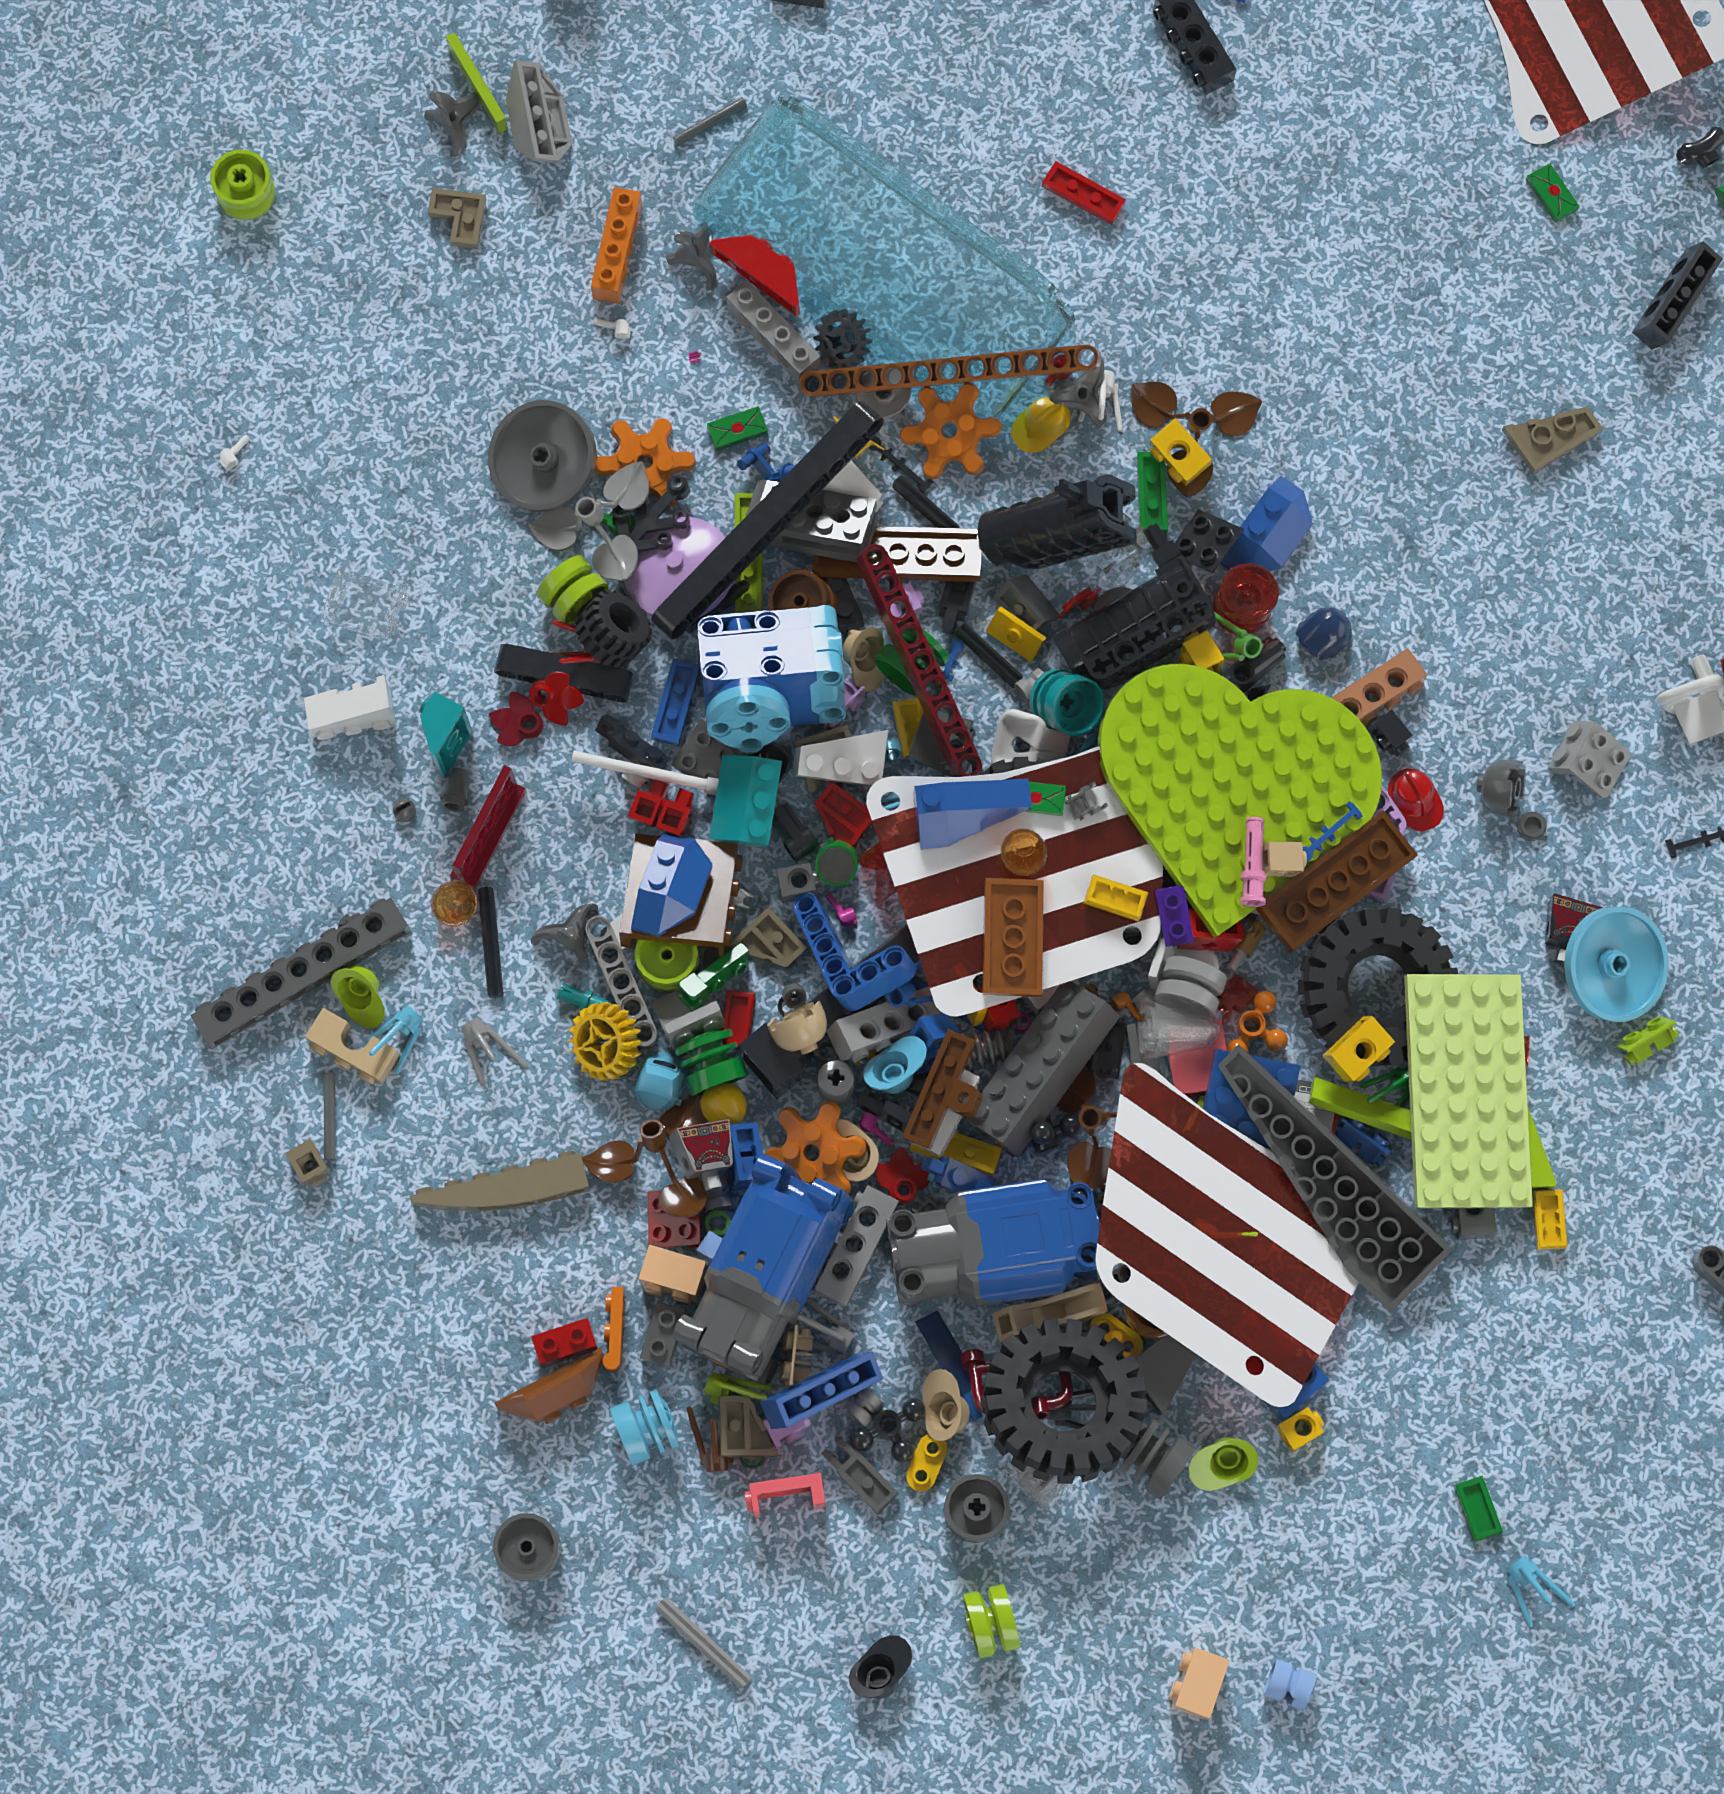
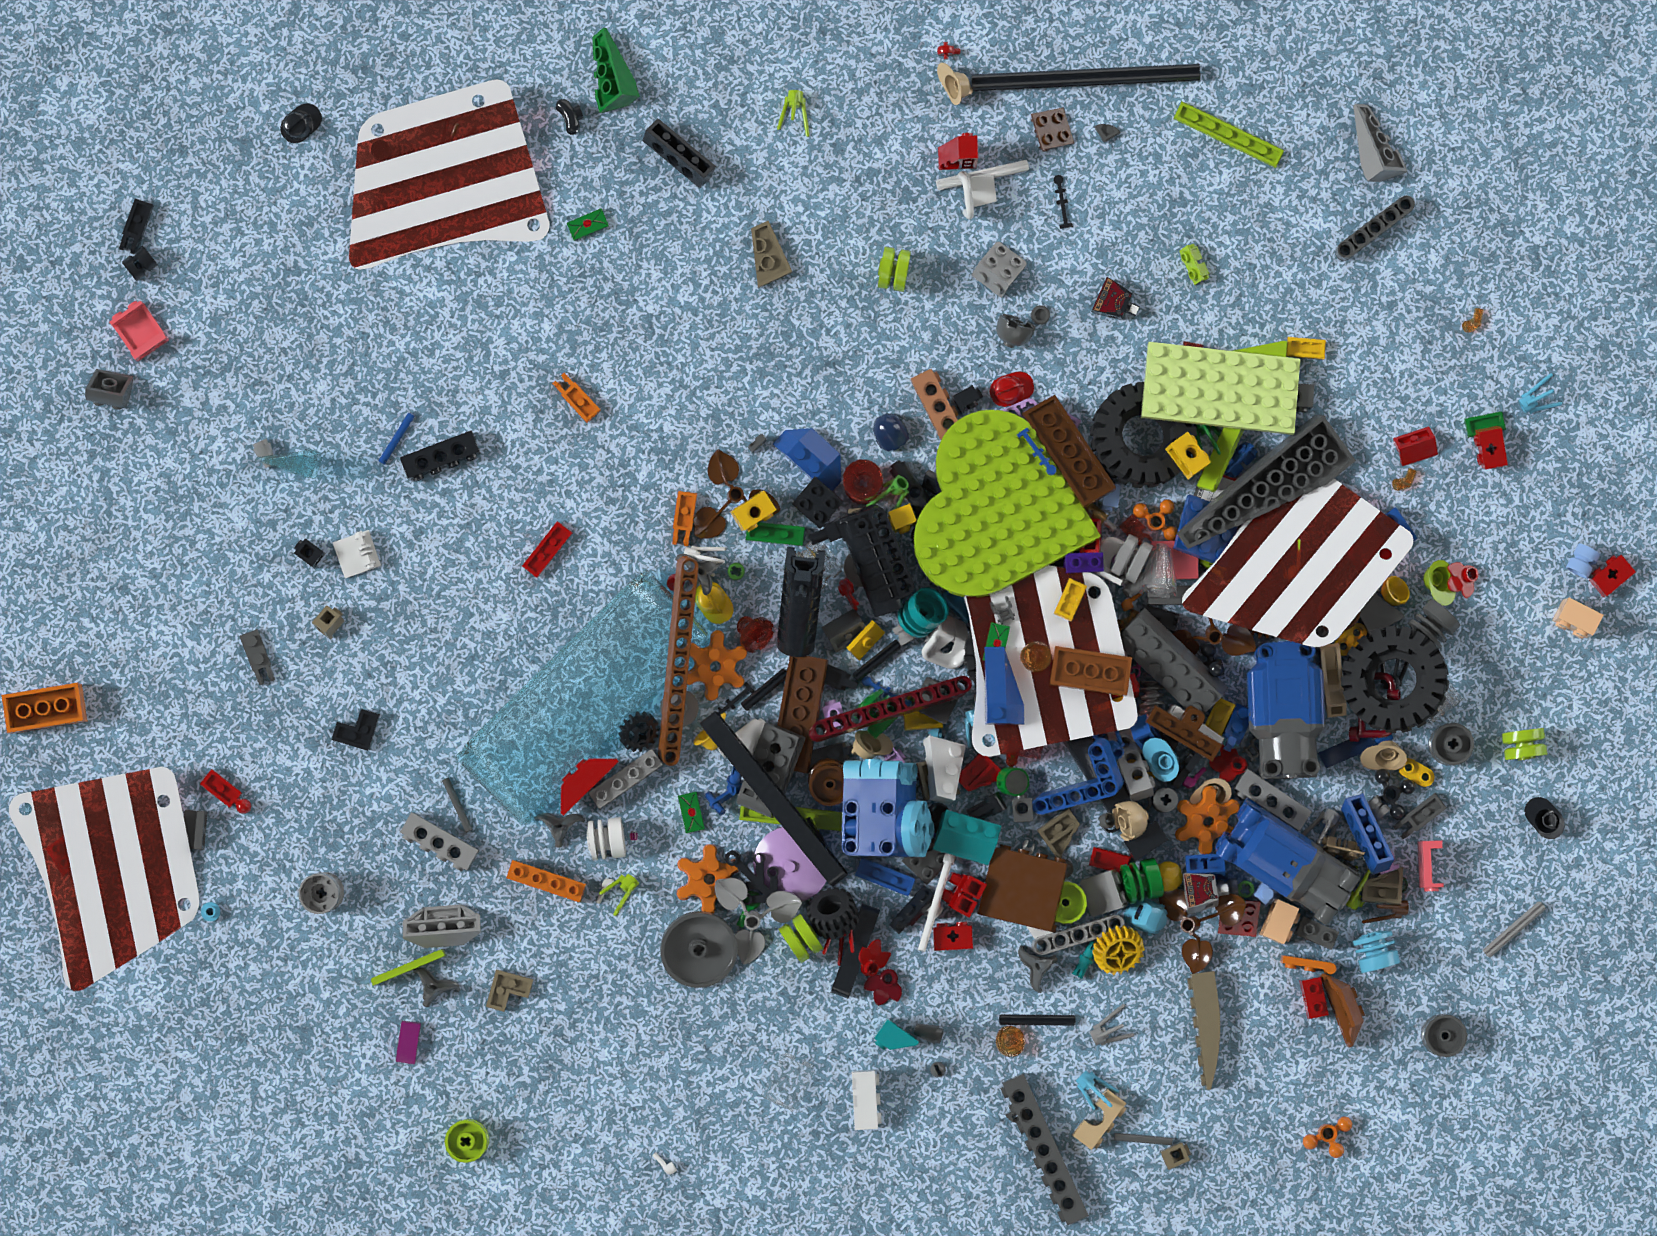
camera: 80 degrees left, 10 degrees up
(338, 1403) = (1336, 1150): none -> orange piece
(358, 994) = (1065, 1111): lime piece -> none
(373, 95) = (408, 1042): none -> magenta slope
(488, 829) = (961, 1014): dark red fence -> none
(596, 789) = (963, 941): none -> red brick
(623, 354) = (628, 884): none -> lime plant
(645, 139) = (415, 822): none -> light grey brick
(671, 884) = (1021, 892): blue wedge -> none
(684, 313) = (606, 839): none -> white wheel
(713, 979) = (1090, 885): green plate -> none
(847, 916) = (1048, 779): dark pink hand -> none
(1003, 479) = (755, 634): none -> clear red tile
(1098, 448) = (737, 565): none -> bright green bush
(1157, 367) = (684, 515): none -> orange hinge
(1200, 1396) = (1395, 591): none -> yellow piece
(1232, 1493) = (1460, 580): none -> plate
(1253, 875) = (1066, 507): bright pink pin -> none
(1276, 957) = (1111, 500): none -> light blue brick
(1281, 455) = (759, 440): none -> dark grey tile
(1282, 1750) = (1622, 571): none -> red brick
(1284, 859) = (1056, 485): tan brick -> none
(1291, 1438) = (1431, 532): yellow brick -> none
(1302, 208) = (578, 399): none -> orange hinge
(1368, 1394) = (1405, 482): none -> clear orange arm
(1426, 1404) = (1416, 446): none -> red panel
(1430, 1531) = (1497, 454): none -> red brick
(1563, 605) = (894, 269): none -> lime wheel
(1616, 964) = (1145, 276): medium azure dish -> none
(1632, 1475) = (1474, 323): none -> clear orange arm

